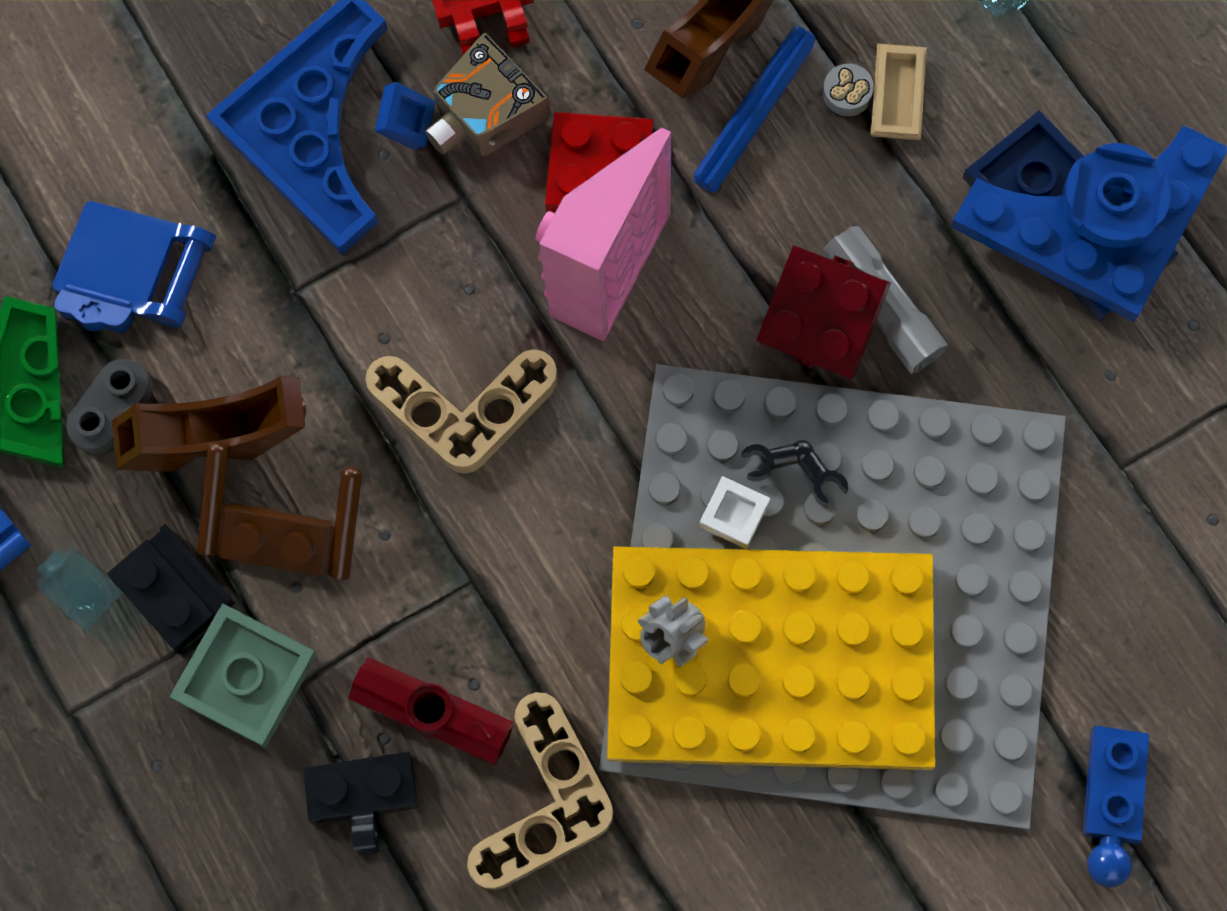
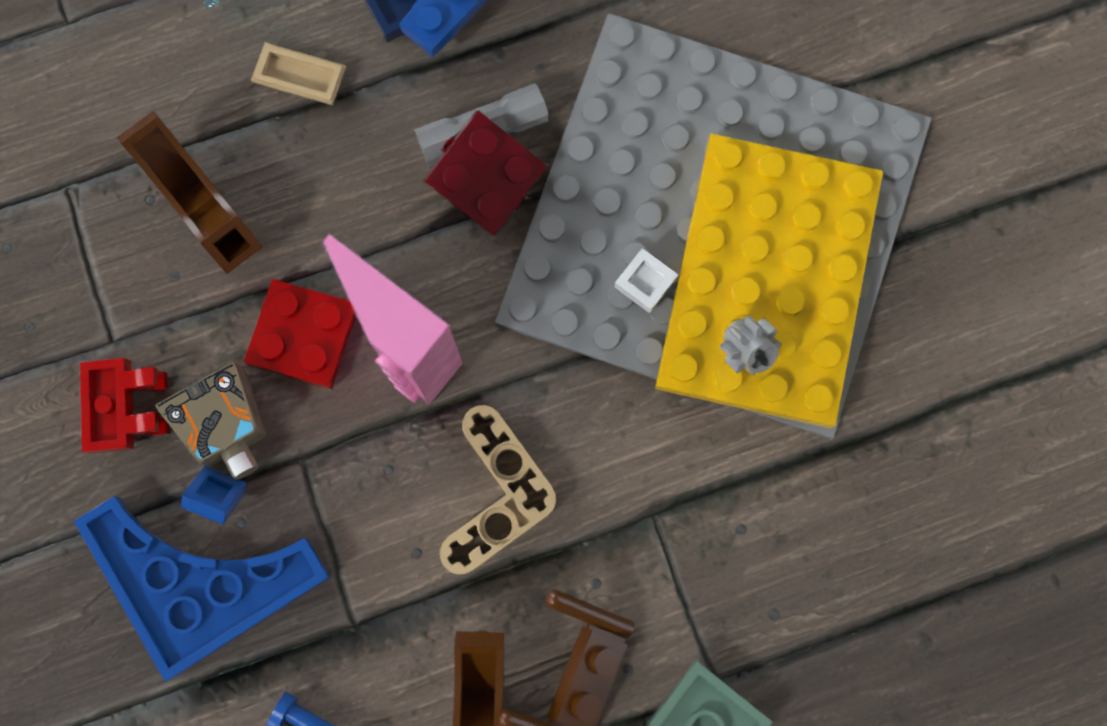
camera: 85 degrees left, 5 degrees up
(360, 792) = (820, 642): black plate -> none
(401, 696) = (782, 542): dark red piece -> none
(565, 793) = (853, 468): tan beam -> none
(754, 109) = (279, 188): blue axle -> none
(798, 453) = (604, 216): black arm -> none
(848, 90) = (285, 114): tile -> none
(1114, 800) = (921, 50): blue plate -> none

